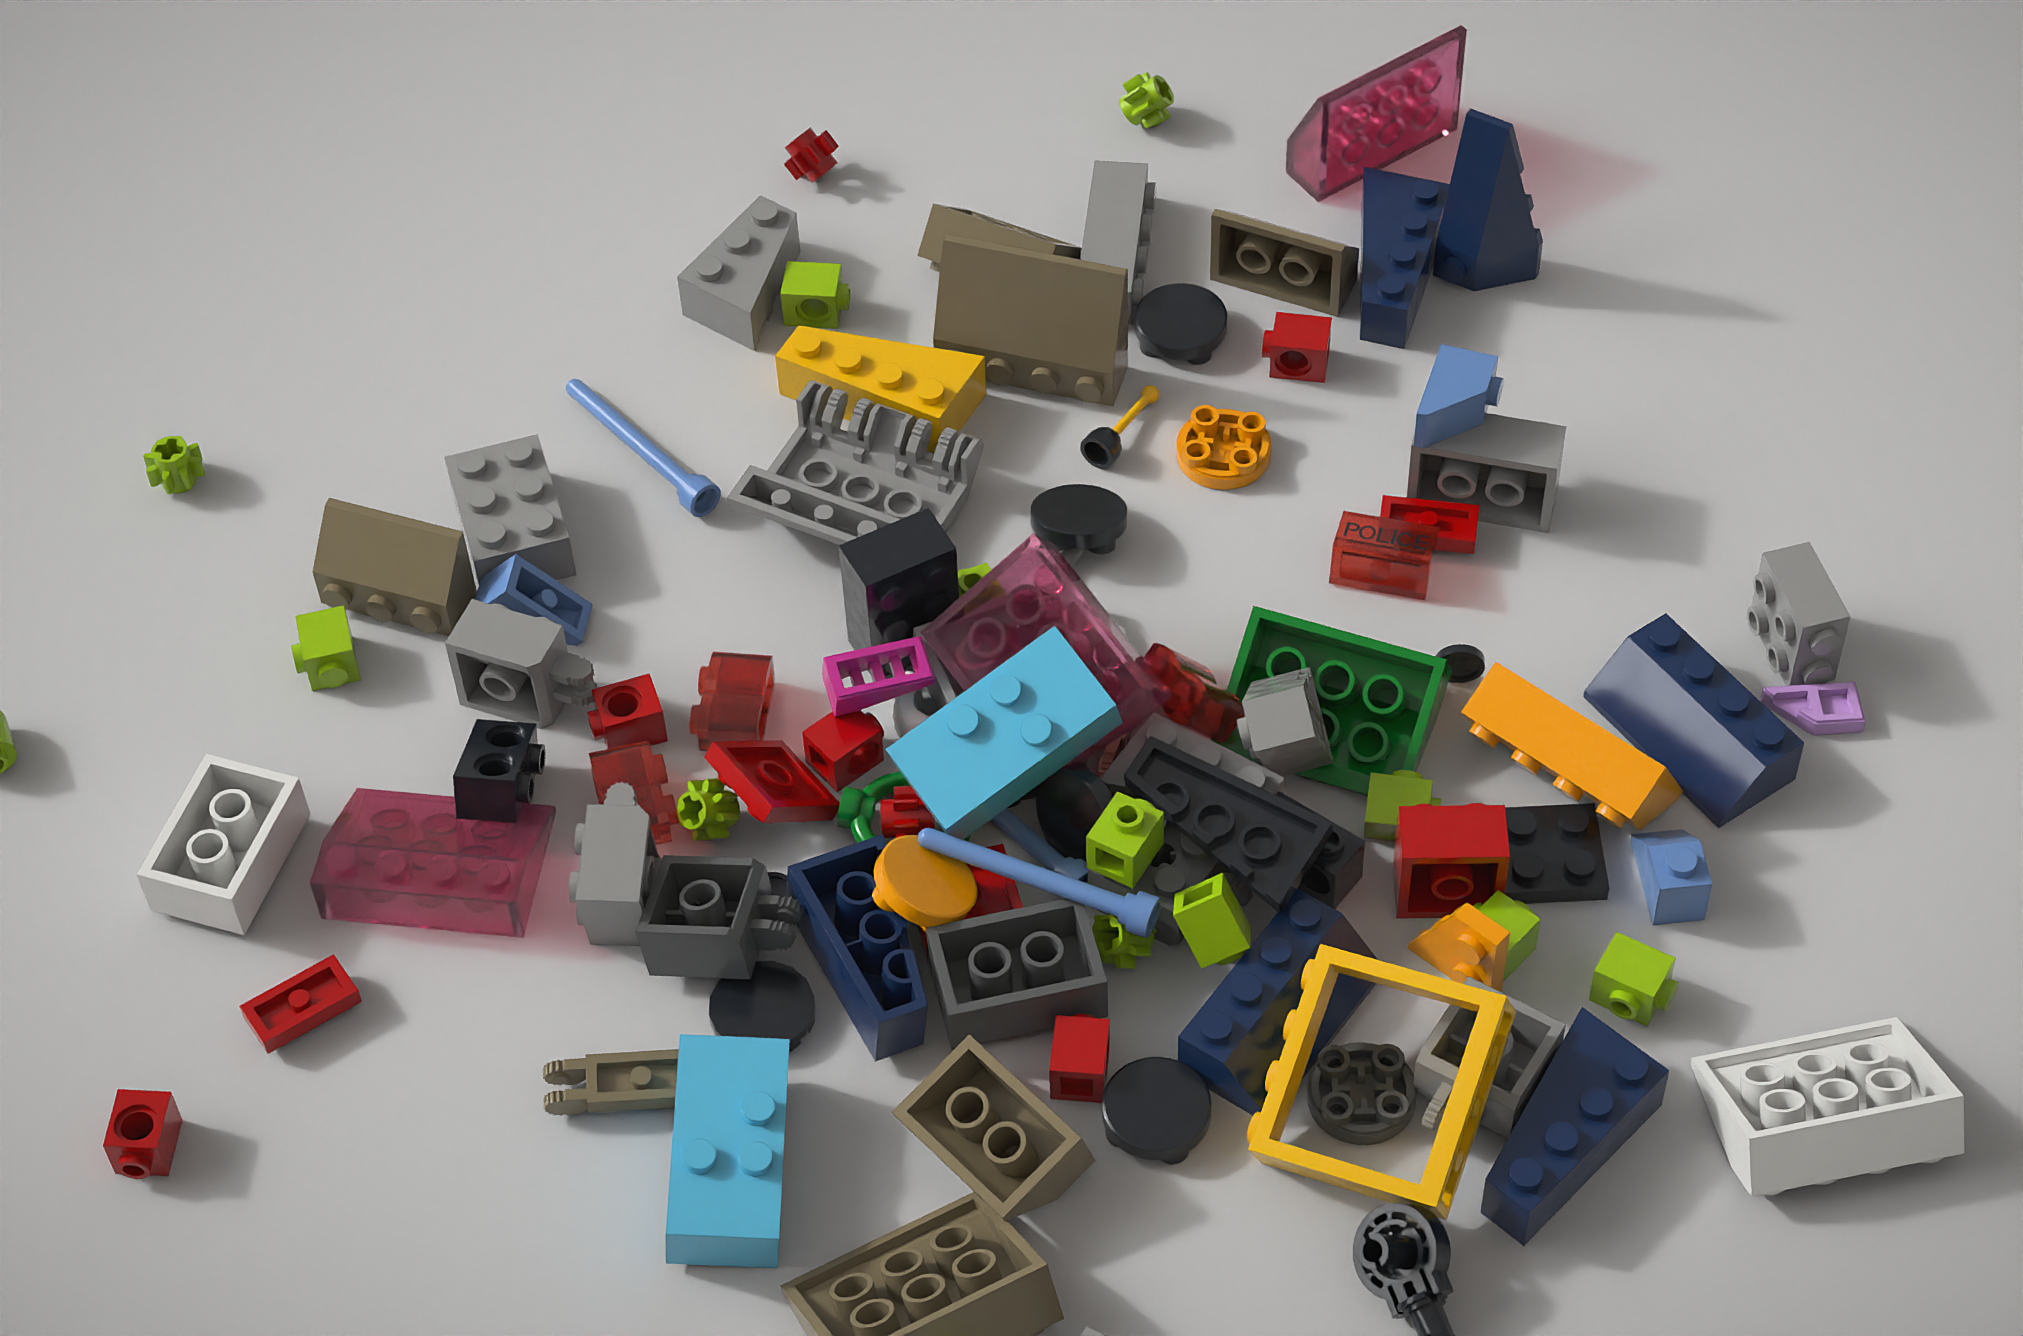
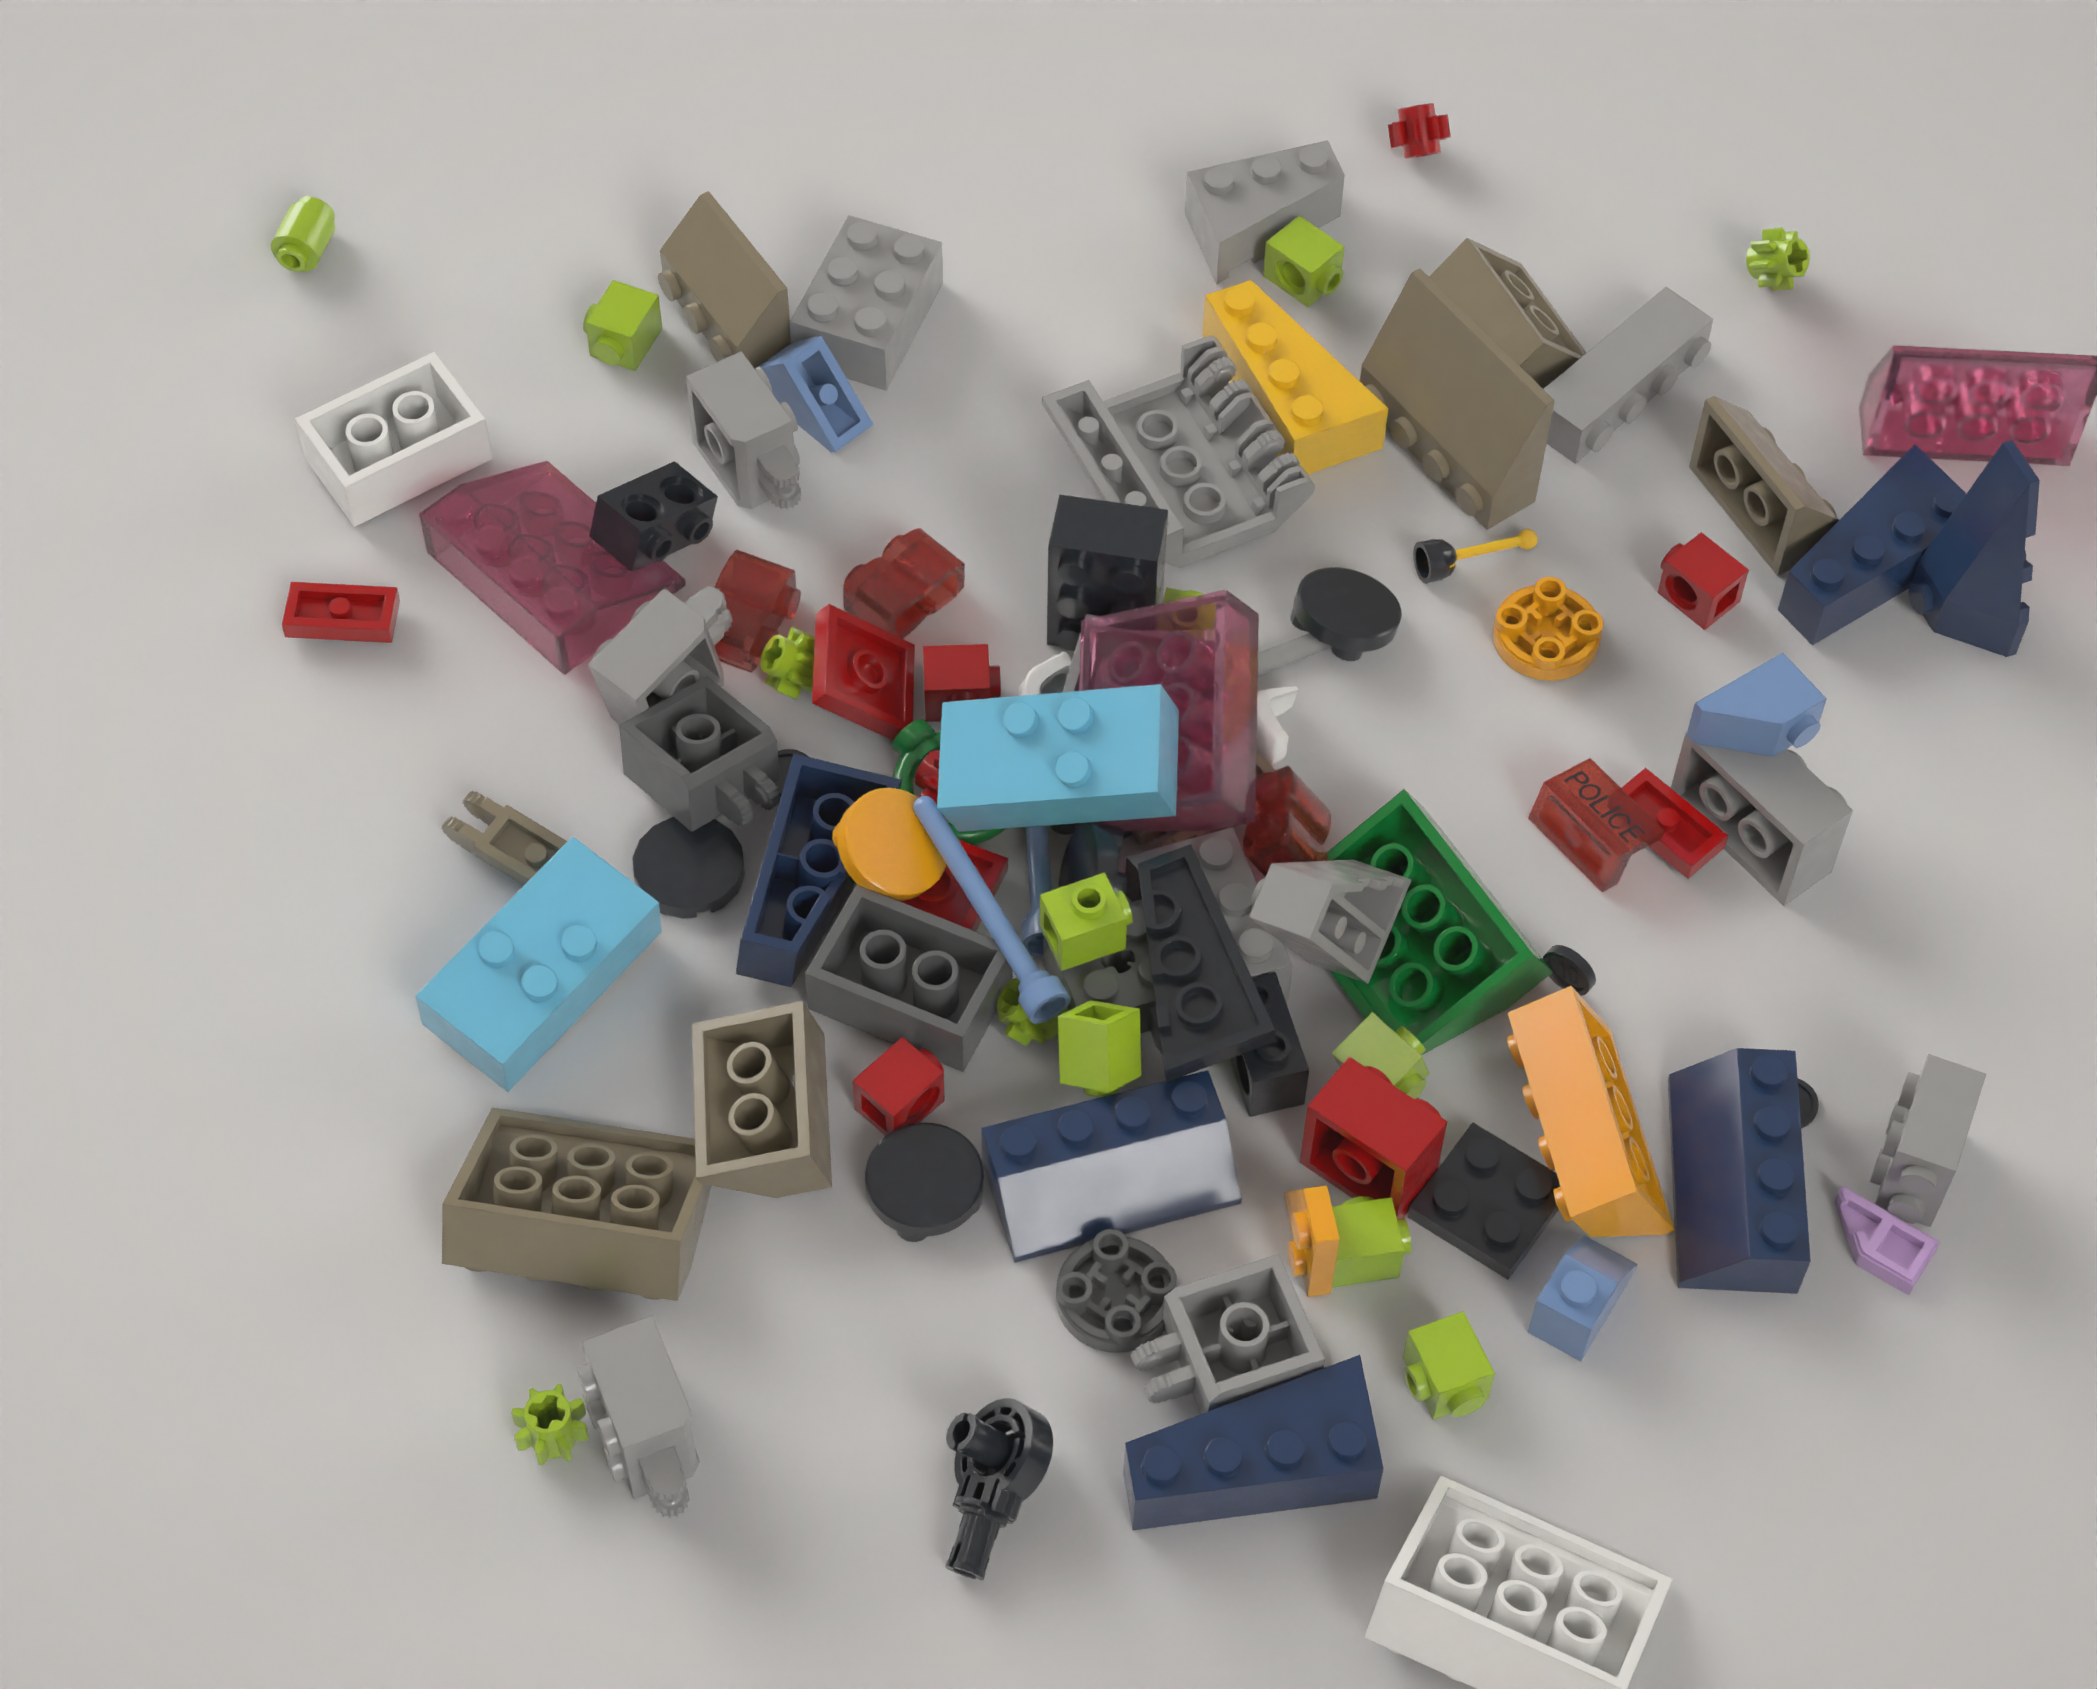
camera: 35 degrees right, 5 degrees up
(141, 1114) = (133, 637): red brick -> none
(174, 464) = (645, 91): lime gear -> none
(627, 713) = (807, 538): red brick -> none
(695, 491) = (1042, 374): medium blue piece -> none
(864, 695) = (1009, 612): dark pink slope -> none
(1180, 323) = (1615, 489): black tile -> none
(1461, 1112) = (1161, 1359): yellow window -> none

